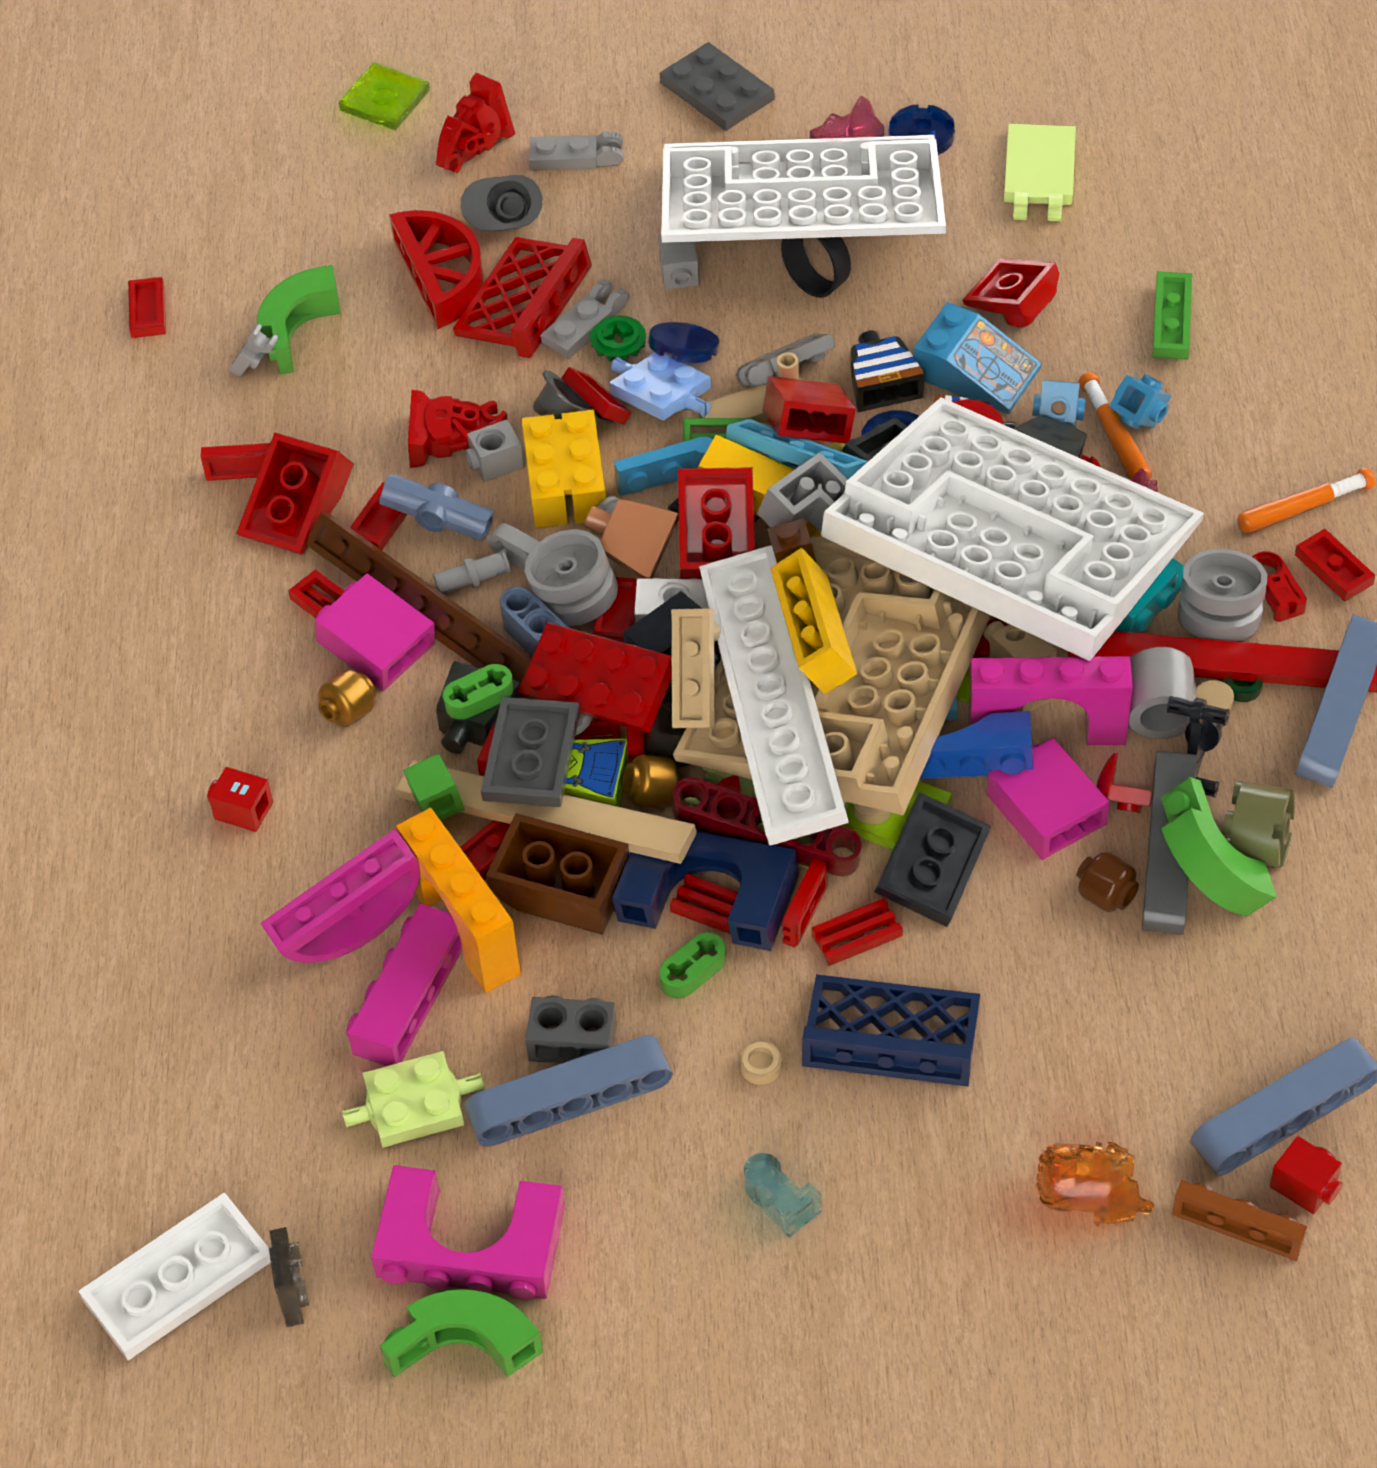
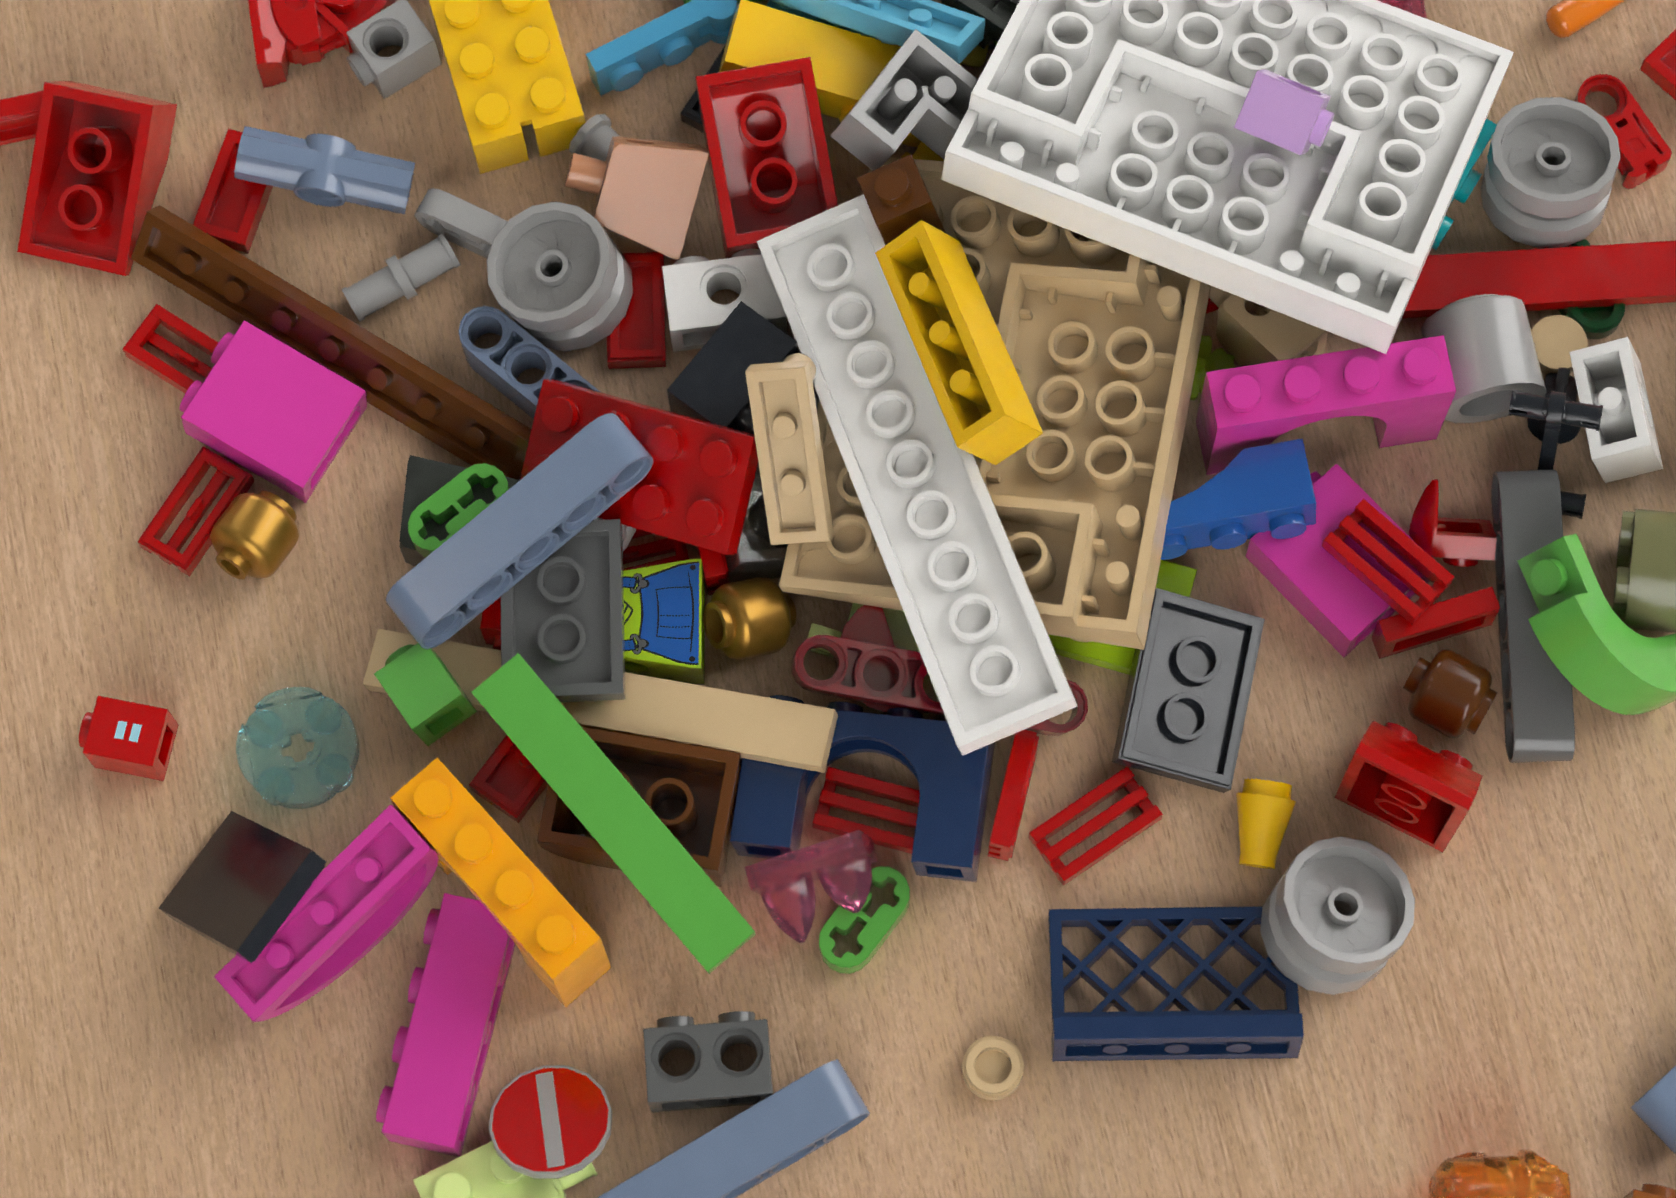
camera: 10 degrees left, 20 degrees up
(291, 879) = (243, 886): none -> black tile
(307, 699) = (176, 500): none -> red tile
(350, 838) = (269, 730): none -> clear light blue plate
(459, 1048) = (550, 1121): none -> red piece
(511, 695) = (519, 531): none -> sand blue beam
(539, 864) = (613, 813): none -> bright green tile
(676, 921) = (788, 879): none -> clear pink tile
(969, 938) = (1262, 820): none -> yellow cone
(1006, 993) = (1337, 915): none -> light grey wheel
(1043, 513) = (1285, 113): none -> lavender brick
(1066, 924) = (1409, 784): none -> red slope
(1082, 790) = (1403, 545): none -> red tile
(1117, 837) = (1437, 623): none -> red tile
(1247, 734) = (1626, 437): none -> white brick

